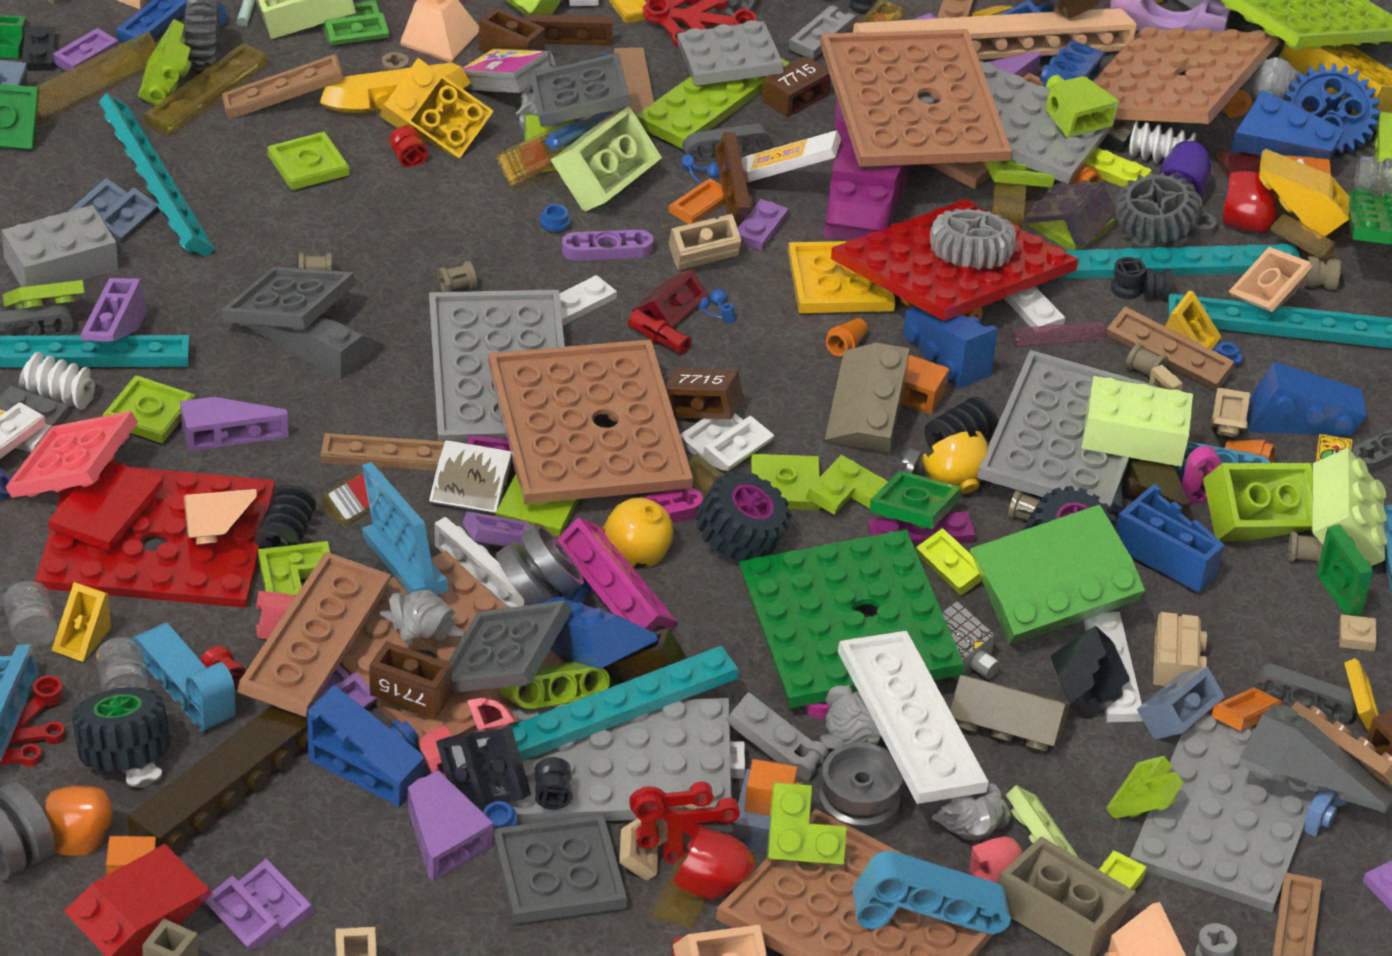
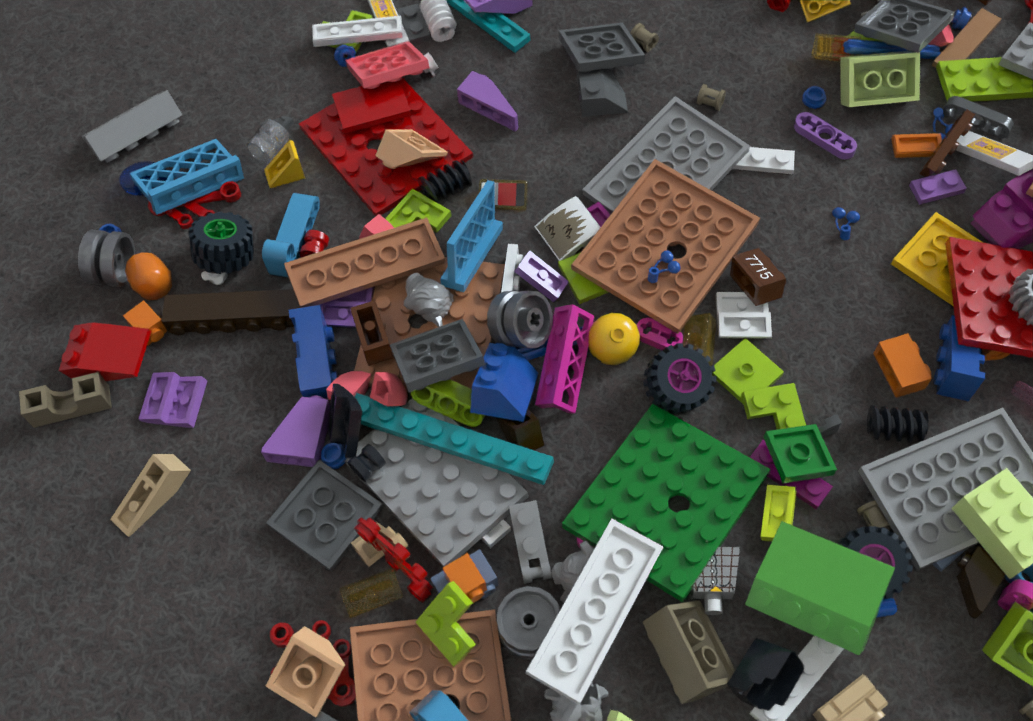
camera: 55 degrees right, 20 degrees up
(121, 664) = (267, 209): clear wheel -> none
(153, 406) = (461, 60): lime plate -> none
(381, 451) = (548, 176): medium nougat tile -> none
(405, 731) = (347, 360): blue plate -> none
(616, 444) = (673, 266): none -> blue piece
(659, 332) = (787, 215): red pin -> none
(674, 297) = (820, 199): dark red panel -> none
(704, 242) = (879, 175): tan brick -> none
(714, 865) = (386, 595): red piece -> none
(845, 336) = (899, 303): orange cone -> none
(868, 397) = (854, 359): dark tan slope -> none
(957, 460) = (859, 448): yellow cylinder -> none
(1169, 541) = (938, 624): blue wedge -> none

